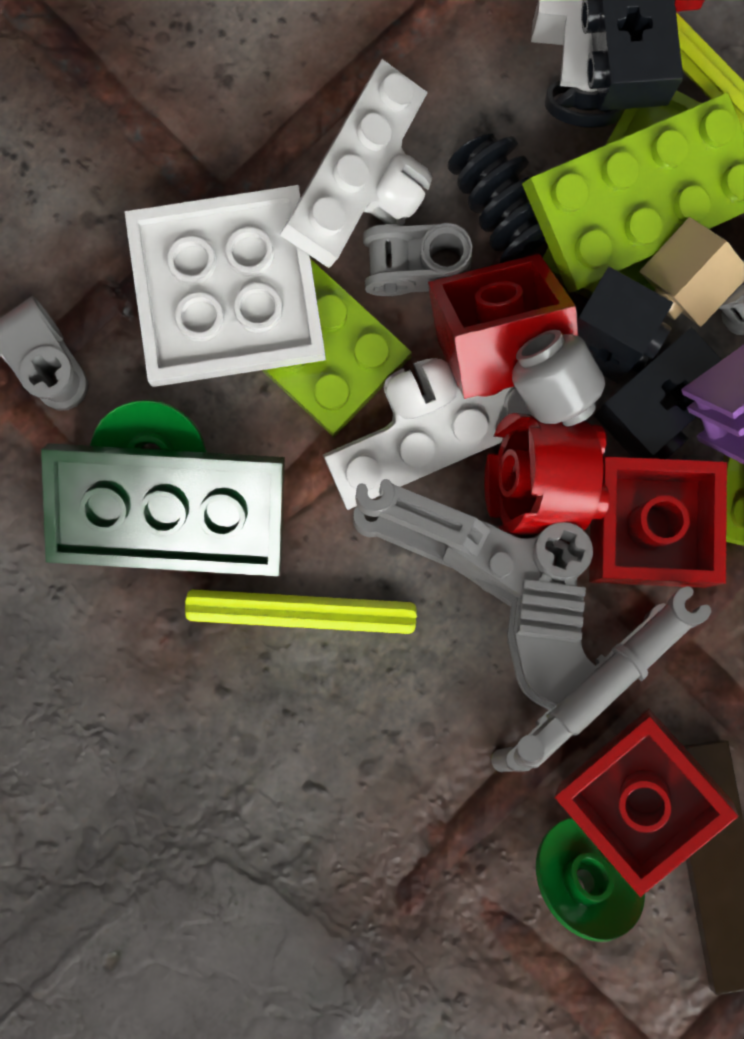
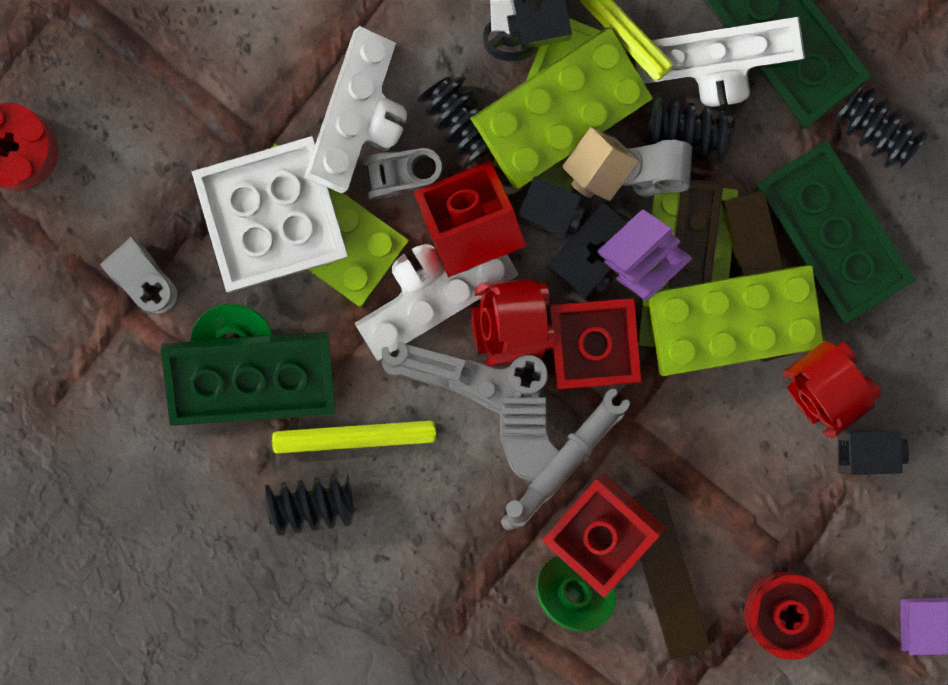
camera: 10 degrees left, 5 degrees up
(224, 701) = (310, 505): none -> black piece
(558, 378) = (508, 259): light grey head -> none

